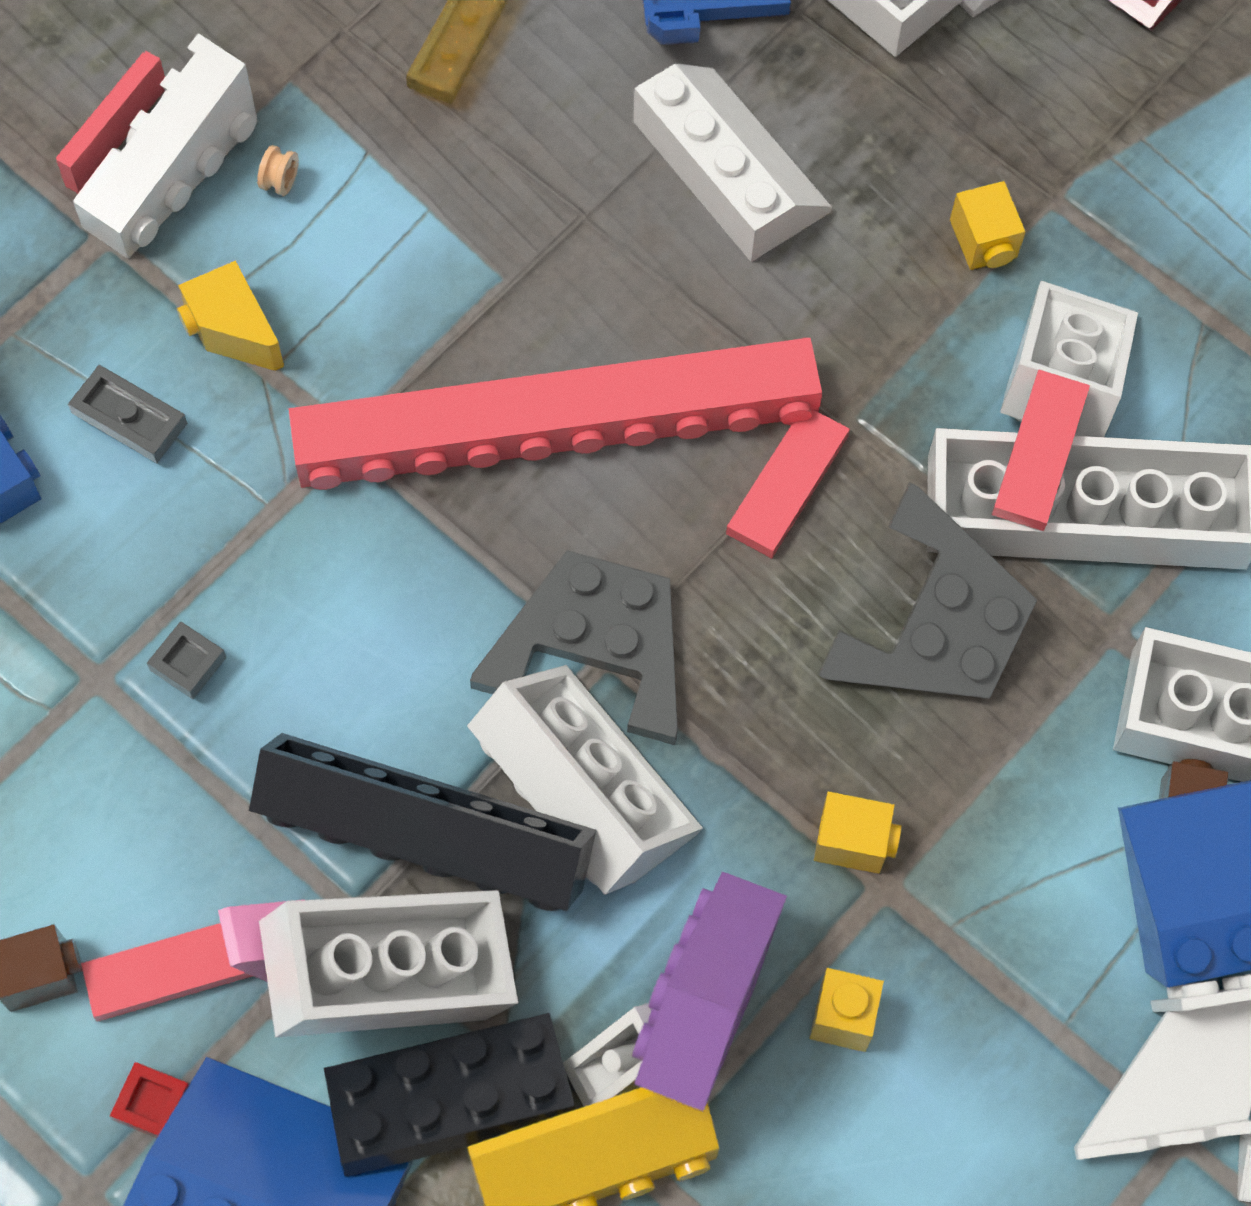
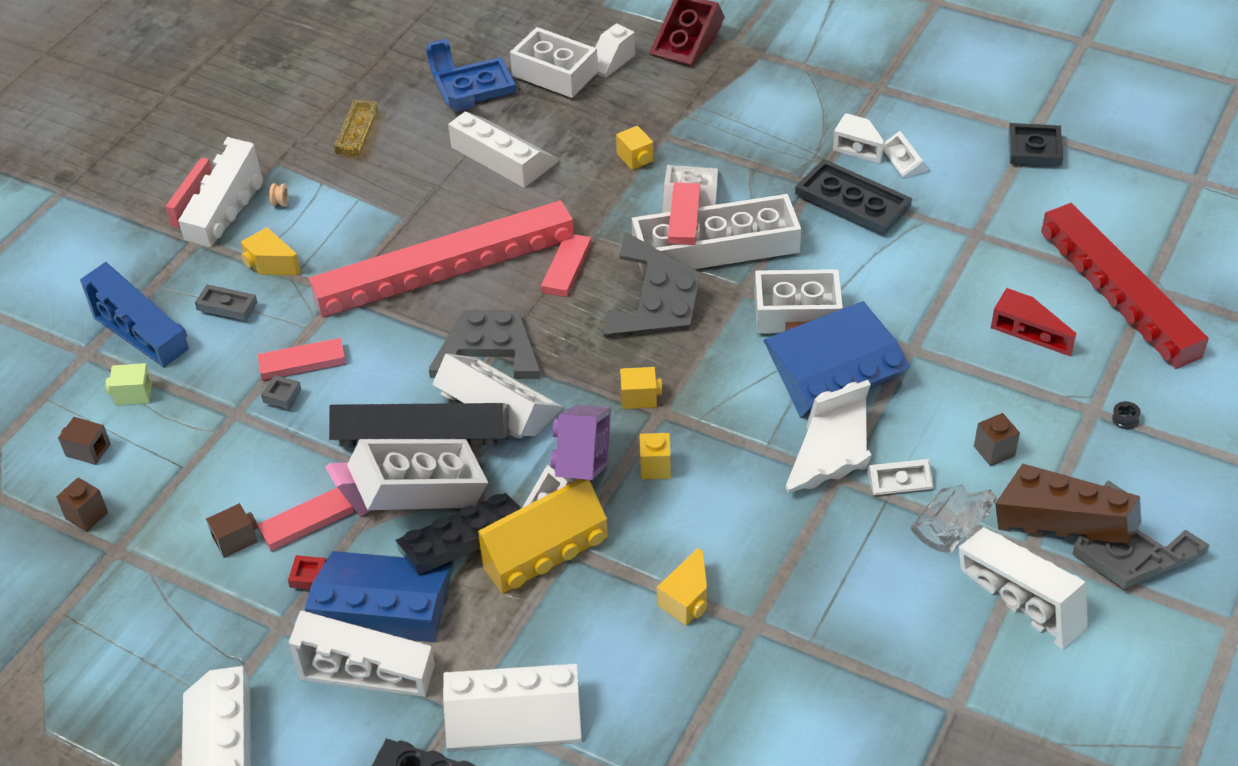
camera: 10 degrees left, 20 degrees down
(241, 584) = (301, 358): none -> coral tile

